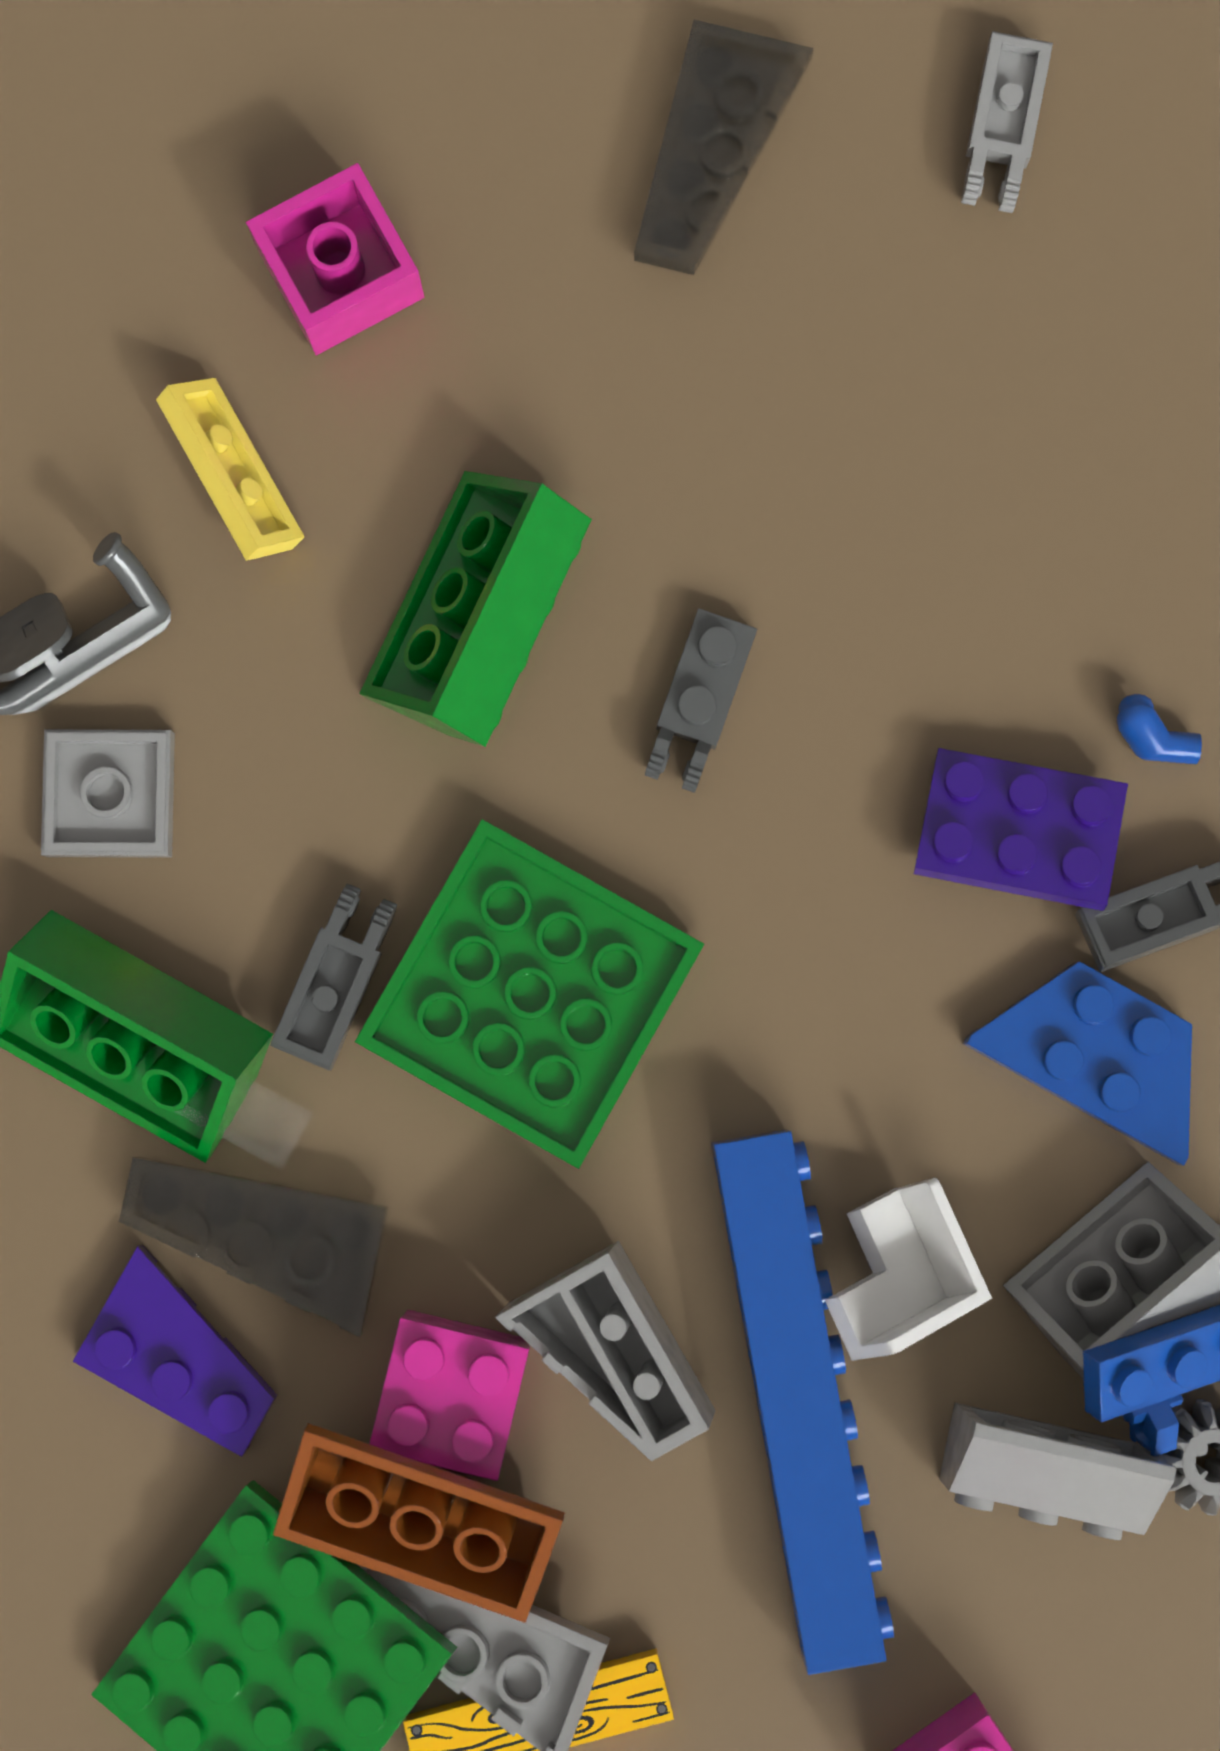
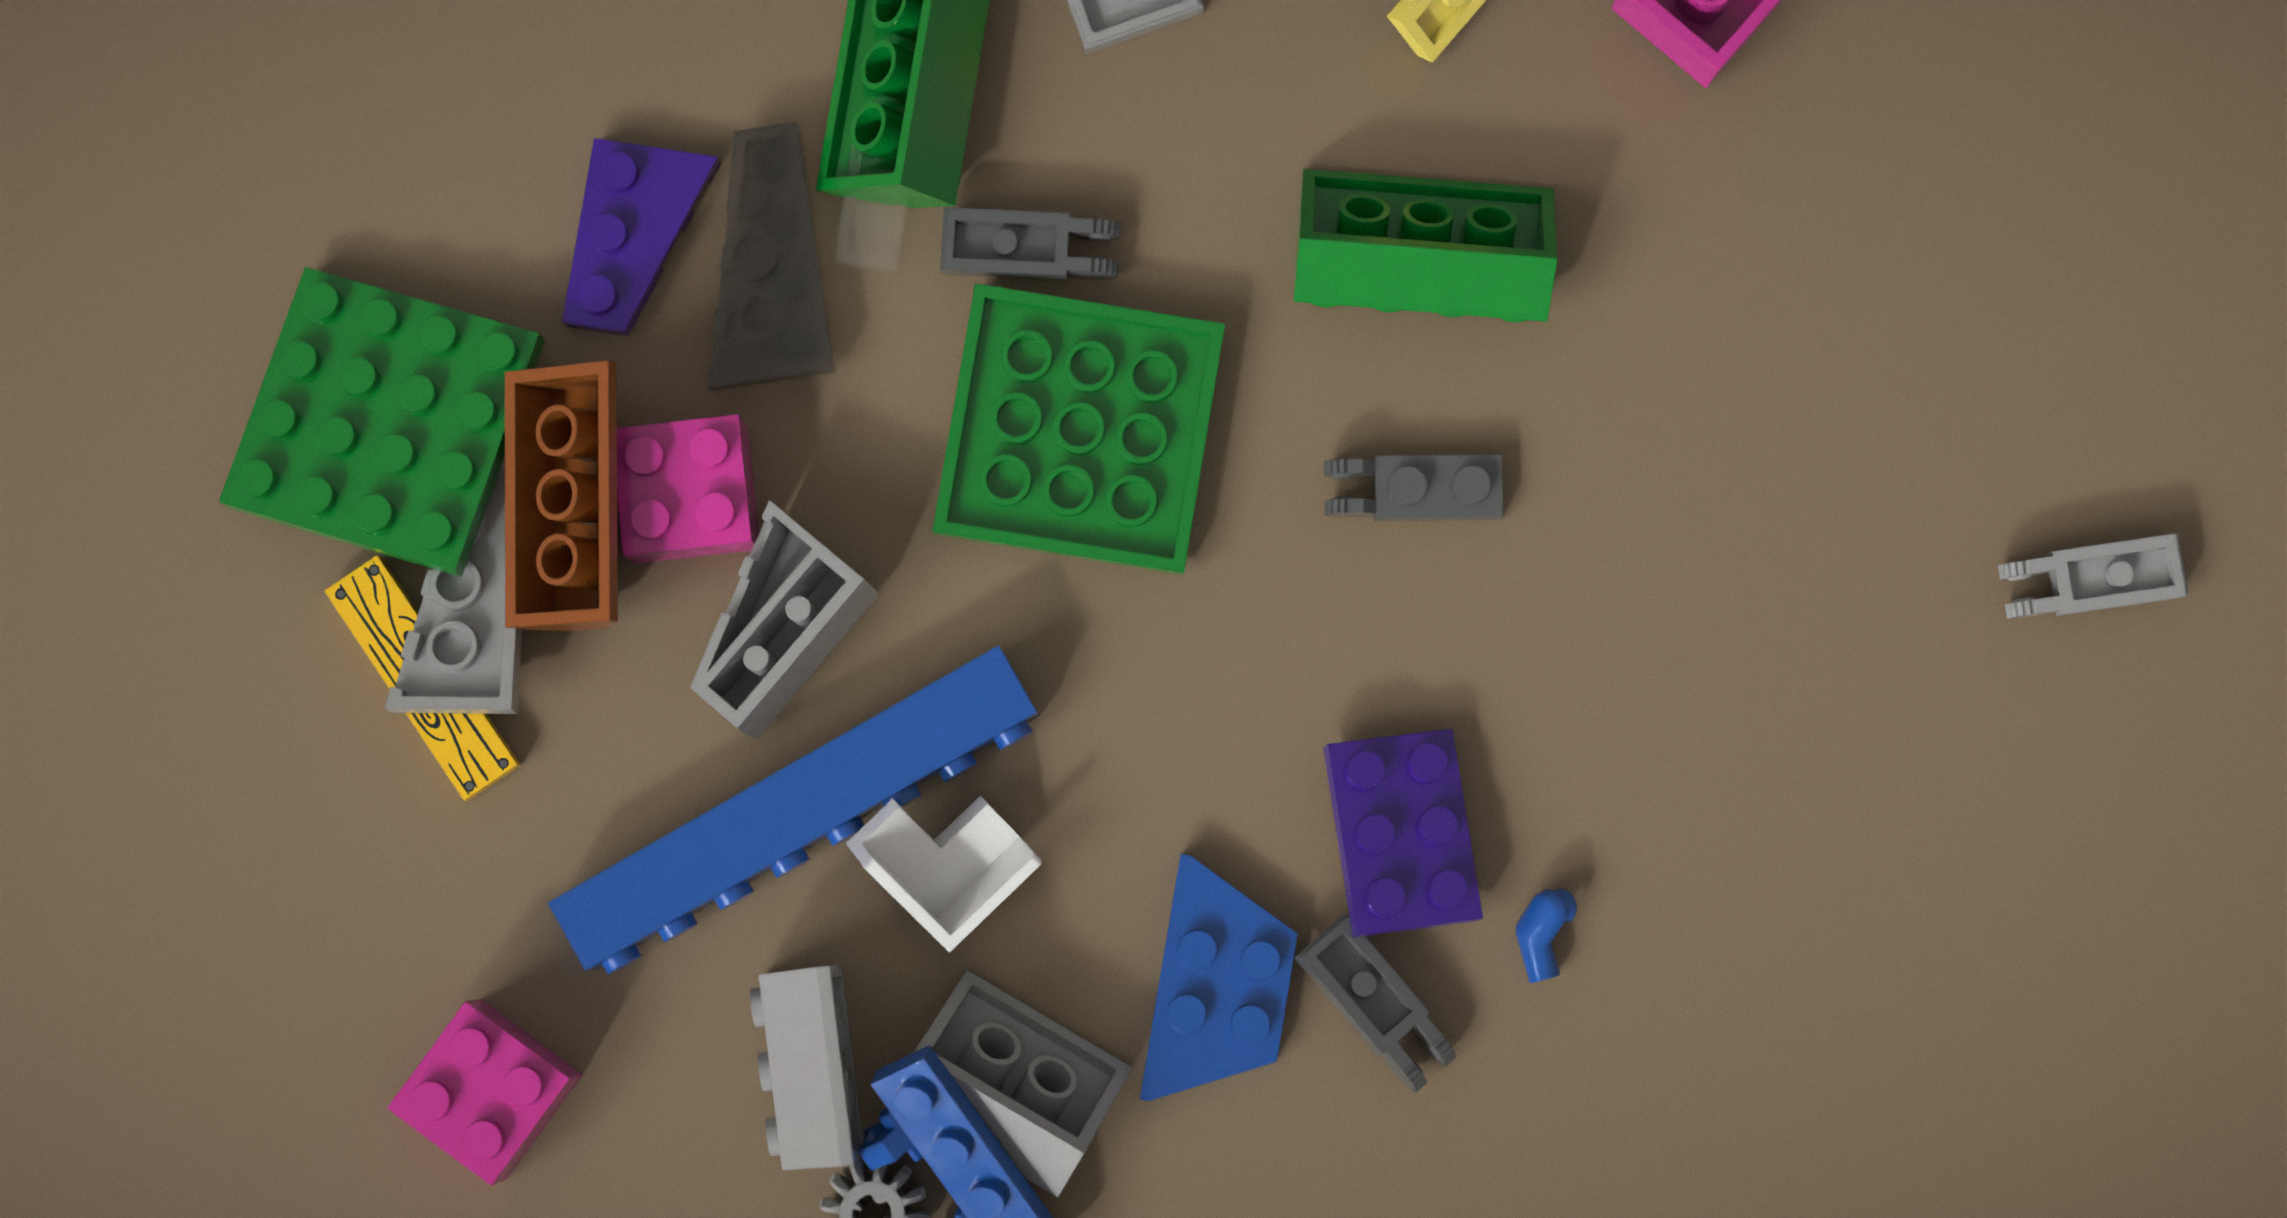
camera: 75 degrees right, 0 degrees up
(718, 124) = (1978, 304): clear smoke wing -> none

